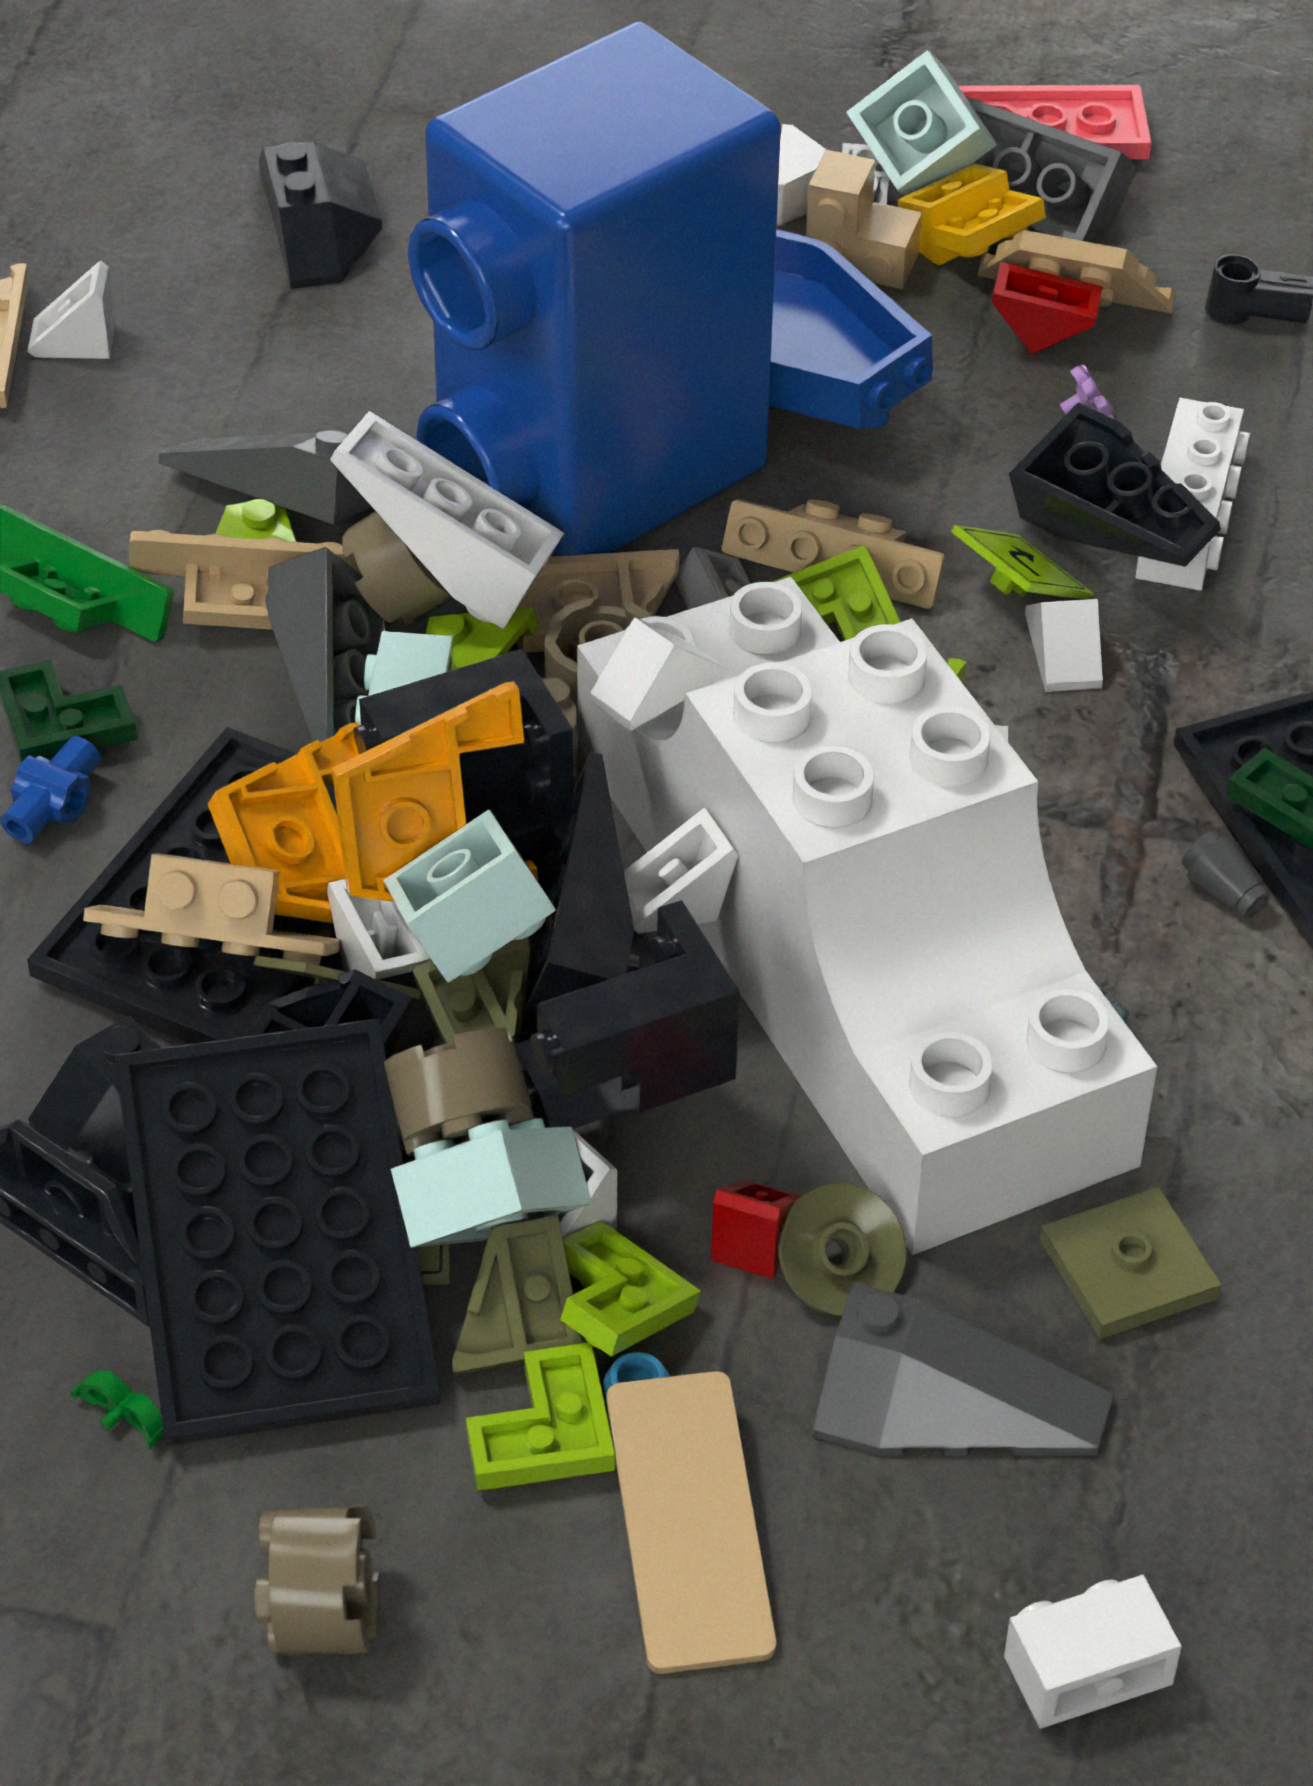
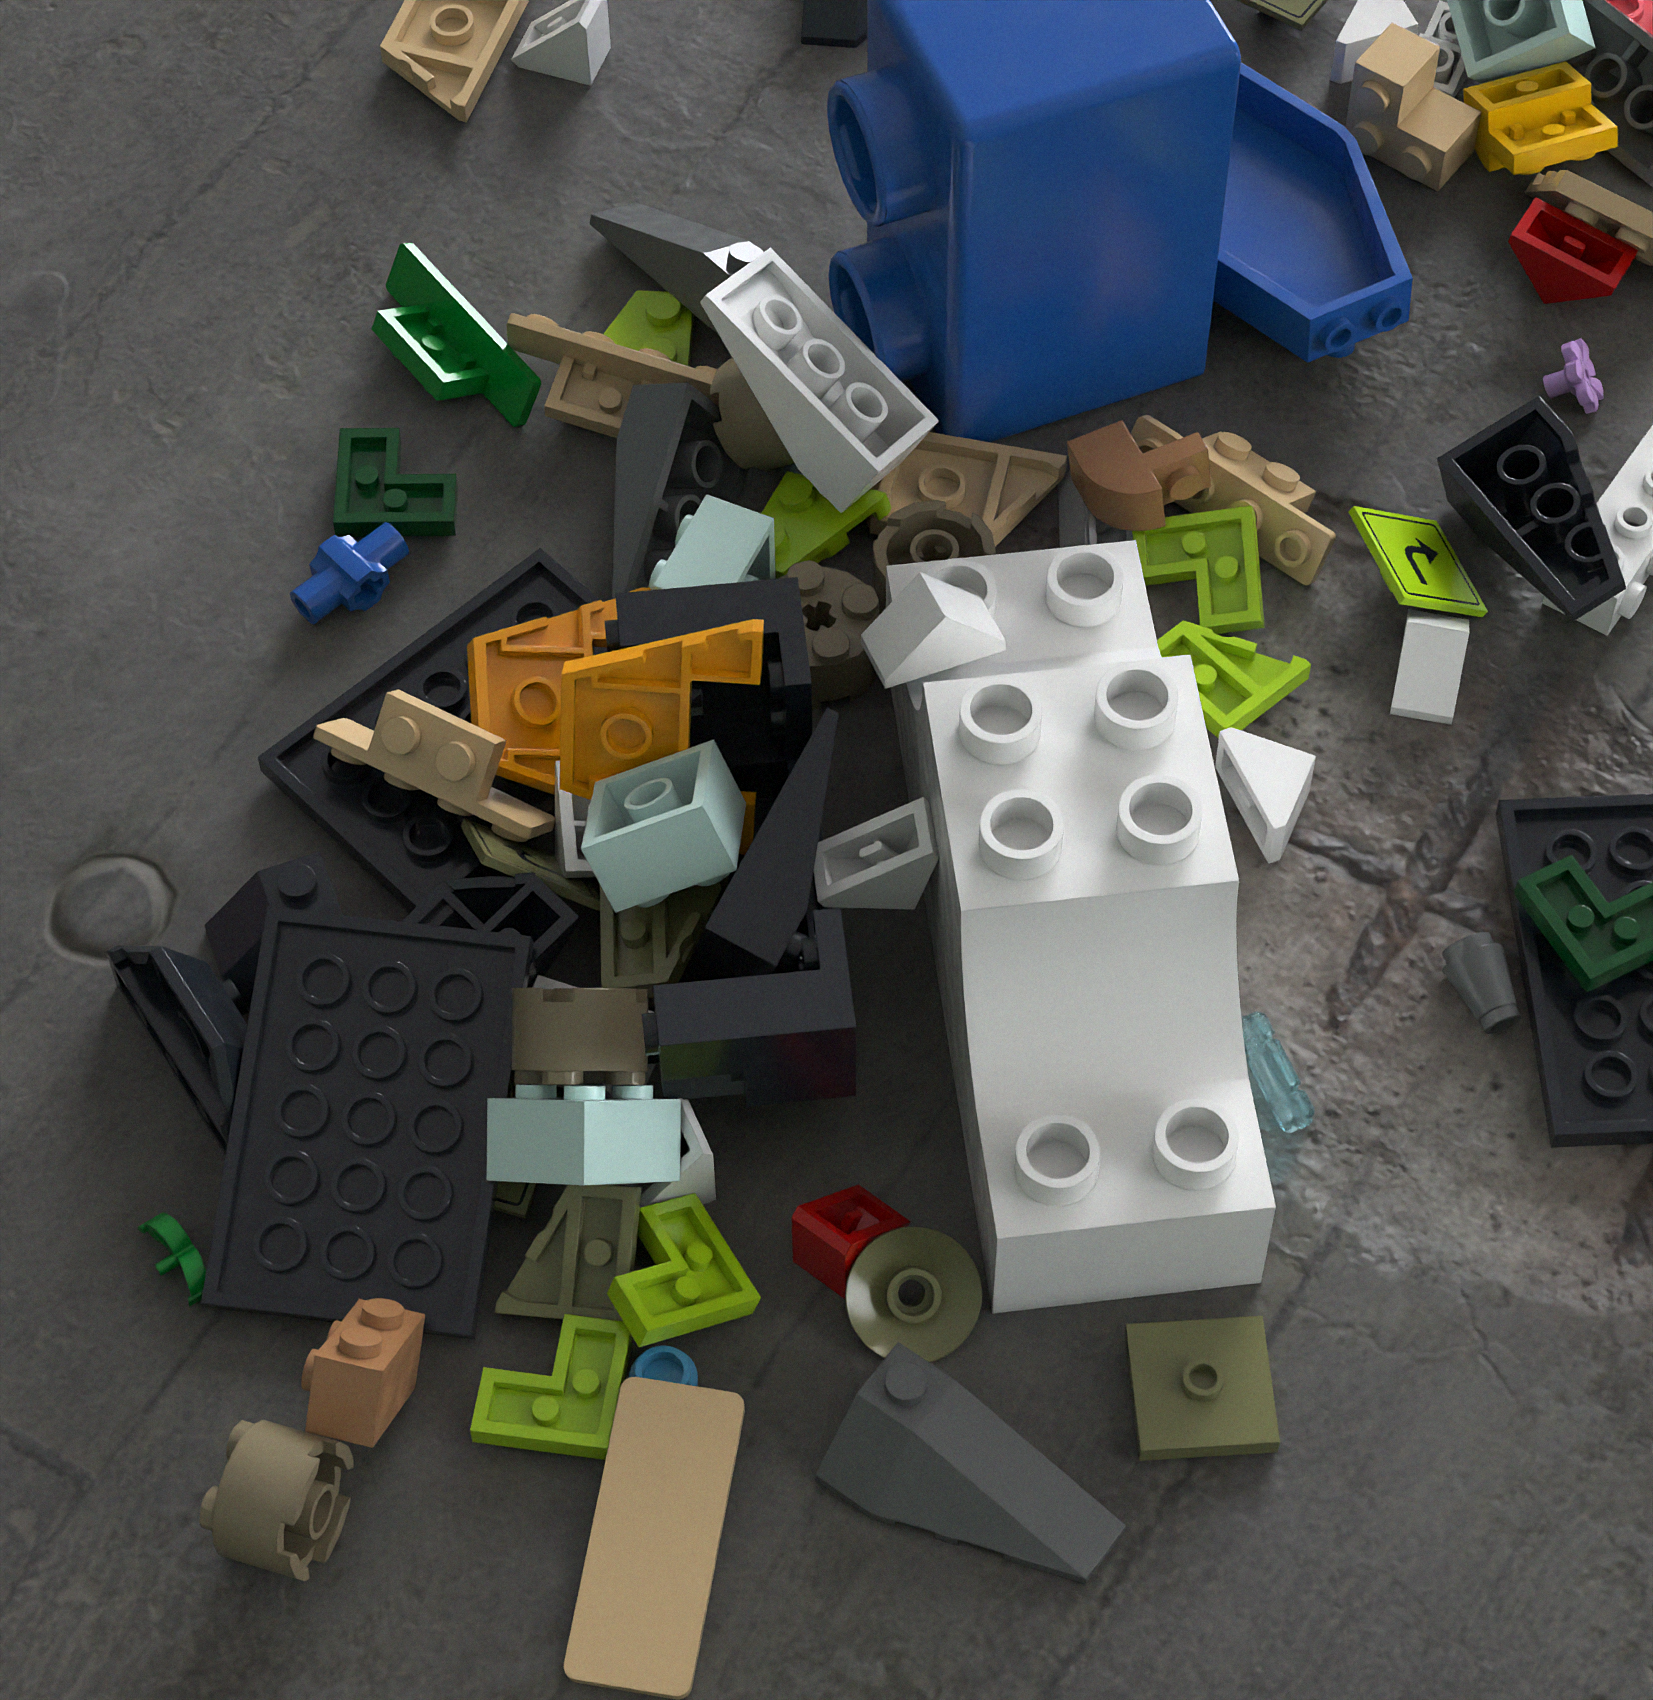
camera: 20 degrees right, 10 degrees up
(357, 1442) = (363, 1371): none -> medium nougat brick
(741, 549) = (1133, 487): none -> medium nougat brick

